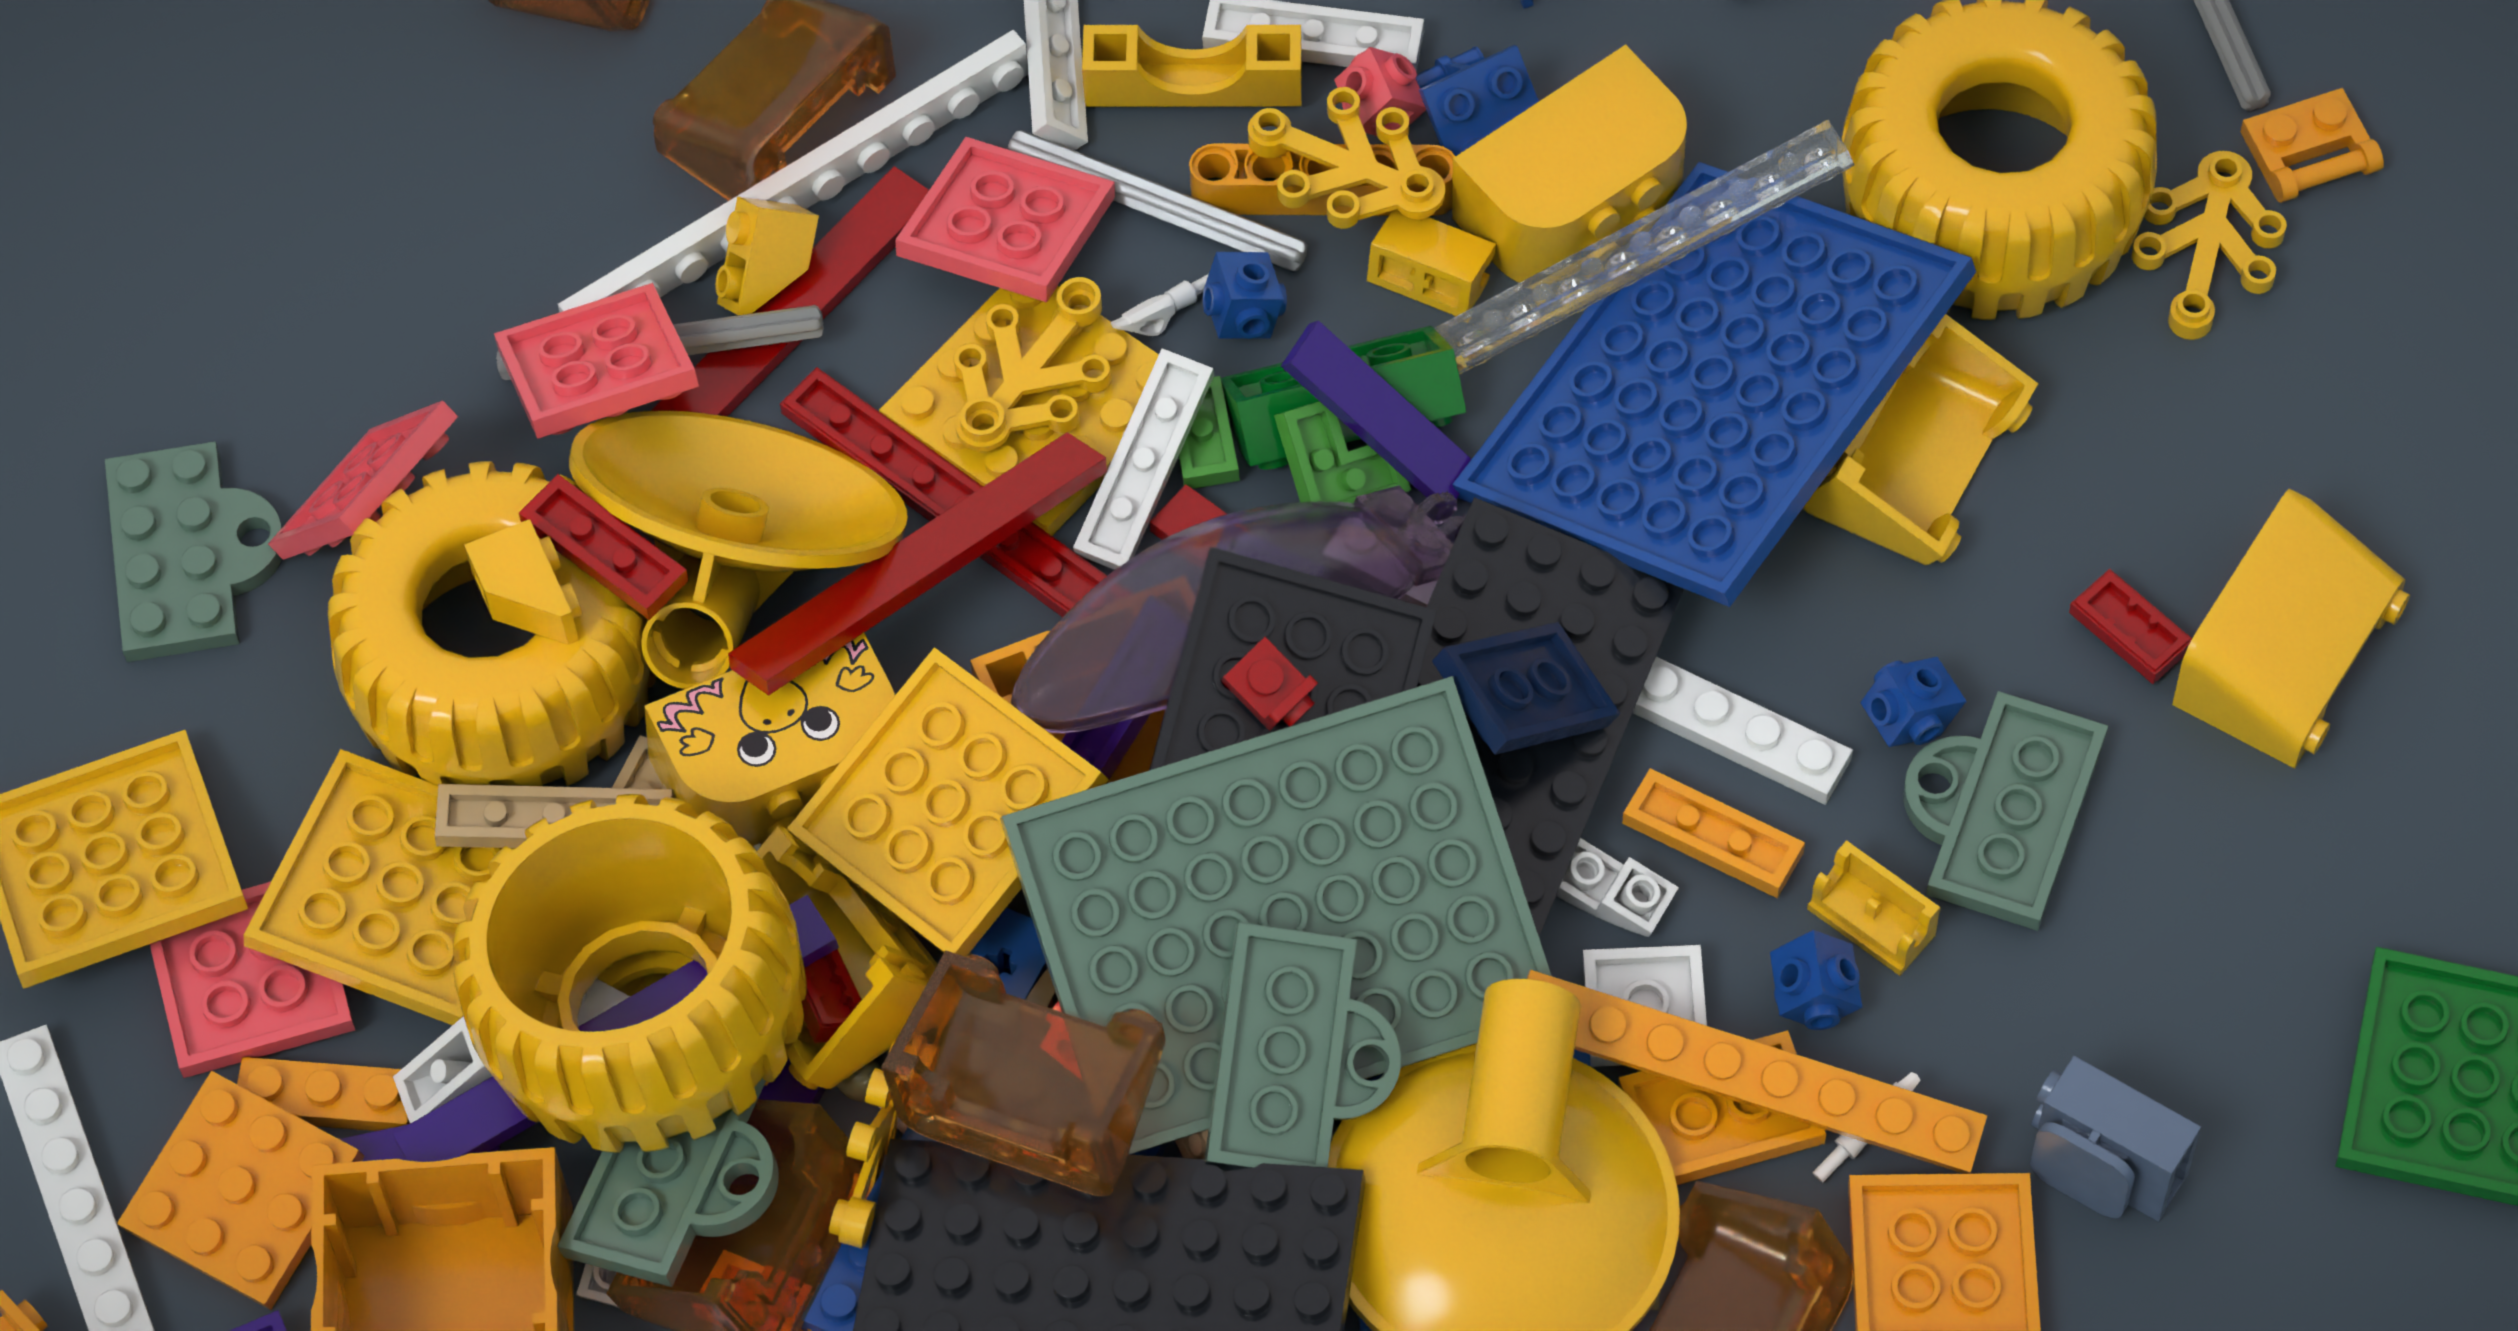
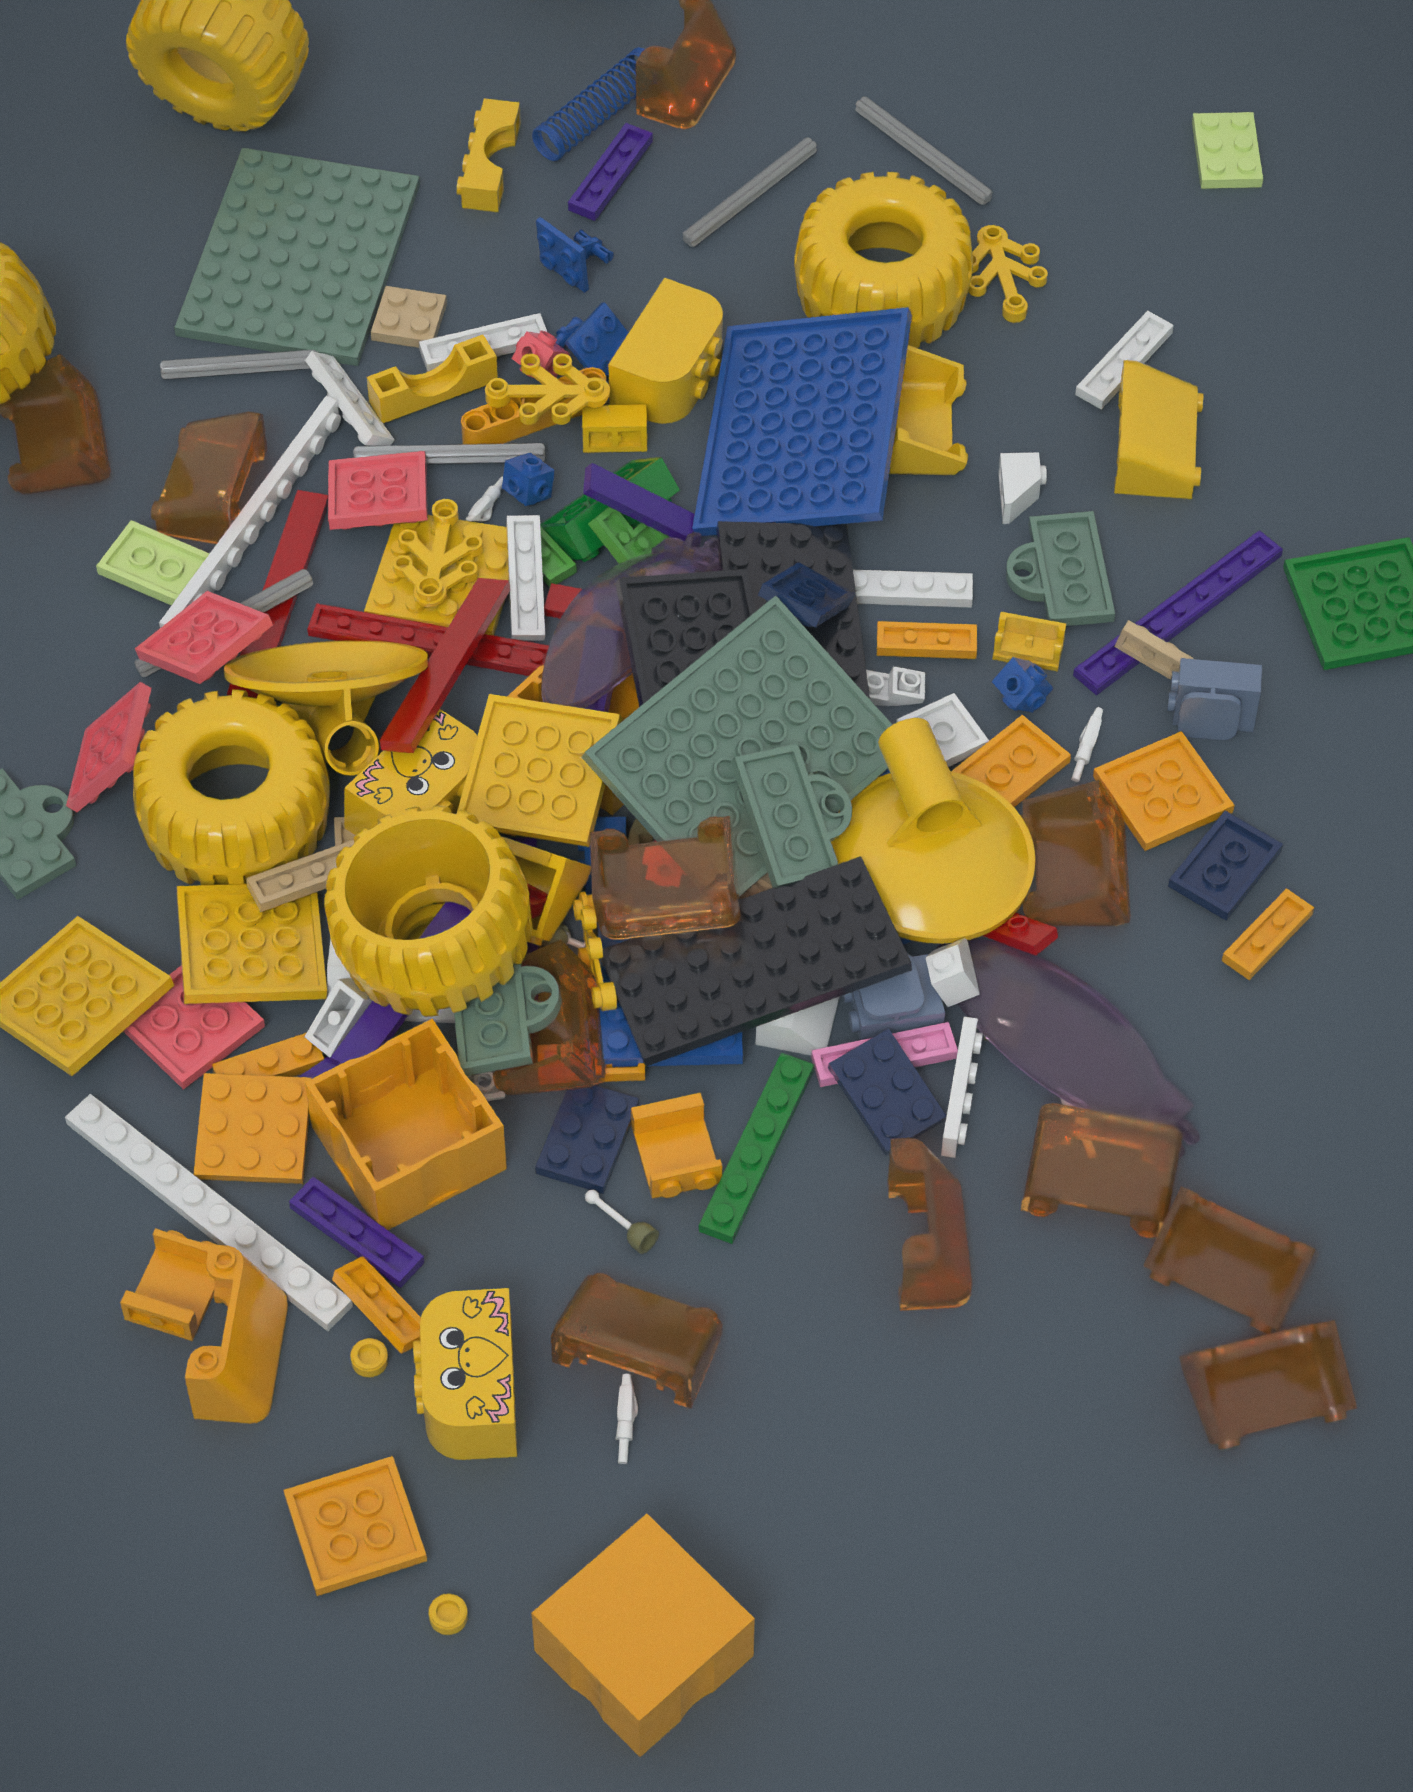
camera: 30 degrees left, 5 degrees down
(520, 583) = (252, 745): yellow slope -> none
(604, 547) = (284, 710): red plate -> none
(612, 195) = (151, 562): none -> yellowish green plate
(765, 252) = (256, 556): yellow slope -> none
(1270, 686) = (686, 636): red bracket -> none
(1646, 245) = (731, 369): clear plate -> none
(1774, 1079) = (1043, 735): light orange plate -> none
(1912, 701) = (990, 537): blue brick -> none
(2016, 626) = (1019, 482): none -> white slope
(2070, 1030) = (1150, 649): none -> tan plate
(2130, 626) = (1075, 462): red plate -> none
(2154, 959) = (1183, 608): none -> dark purple tile
(2306, 132) = (1019, 203): light orange plate -> none
(2323, 474) = (1136, 345): none -> white plate

